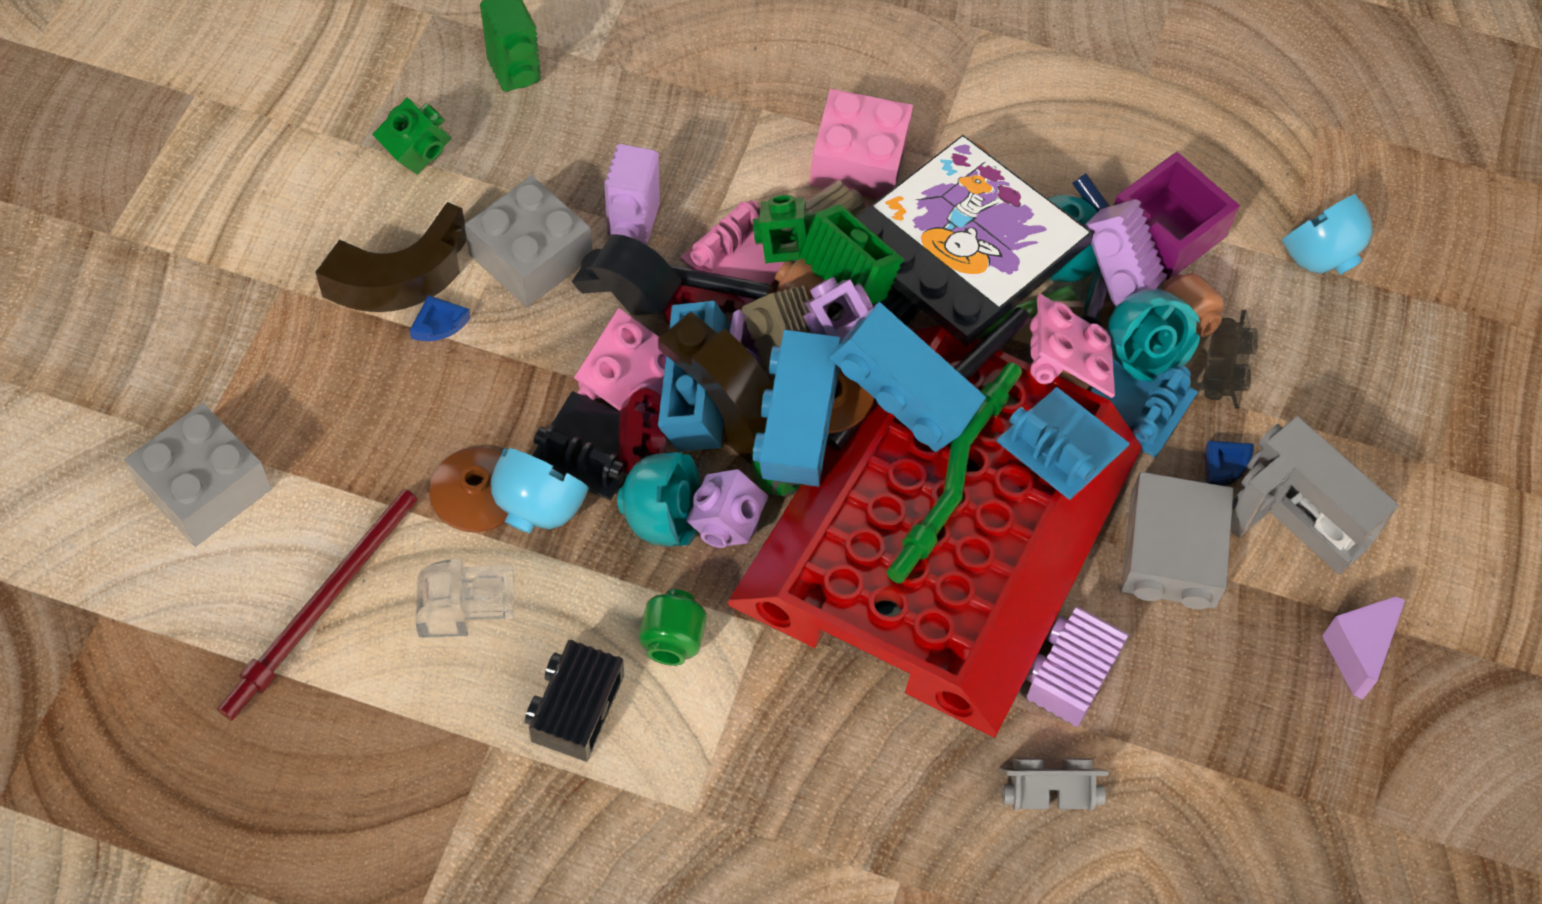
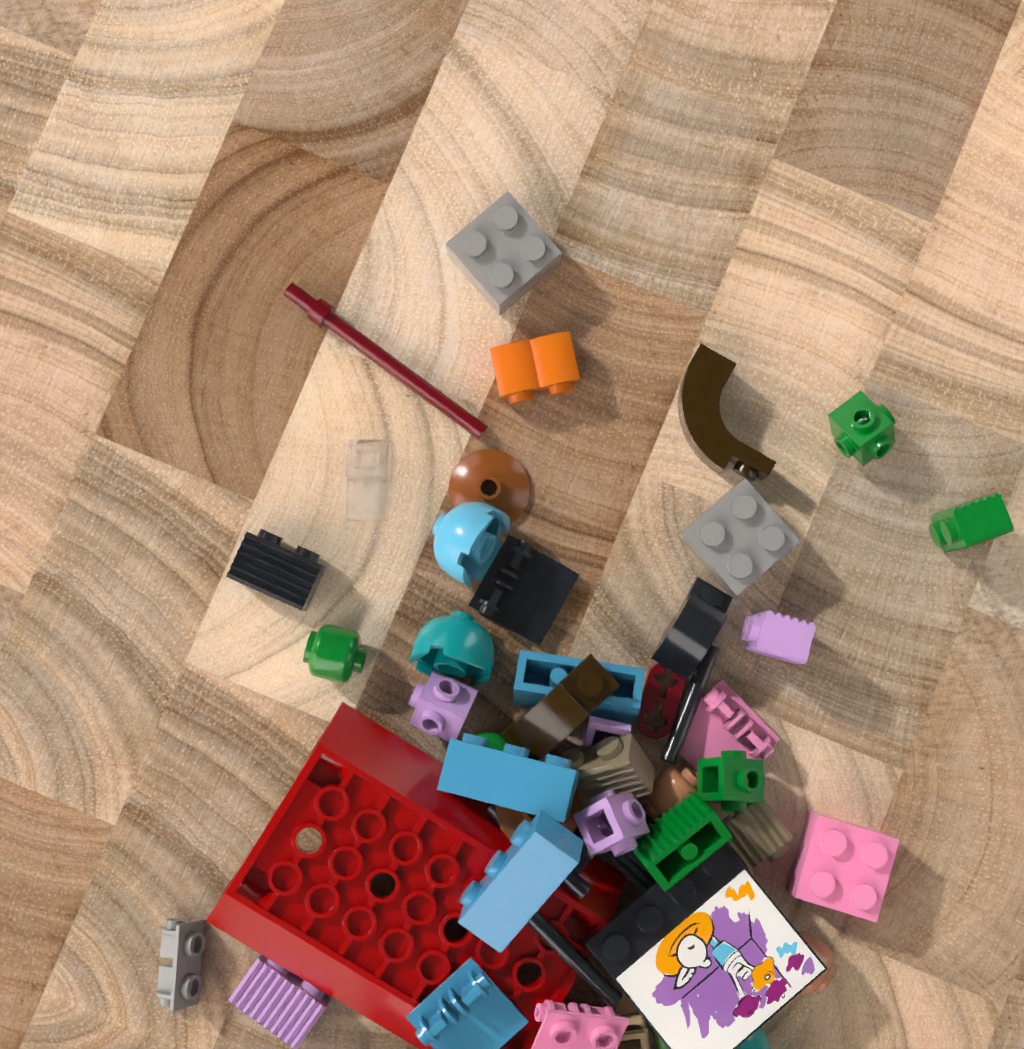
camera: 100 degrees right, 25 degrees up
(334, 439) = (535, 367): none -> orange brick
(438, 320) = (663, 455): blue tile -> none
(622, 363) = (596, 624): bright pink hinge -> none
(632, 429) = (526, 632): dark red beam -> none
(922, 537) = (364, 876): green bar -> none

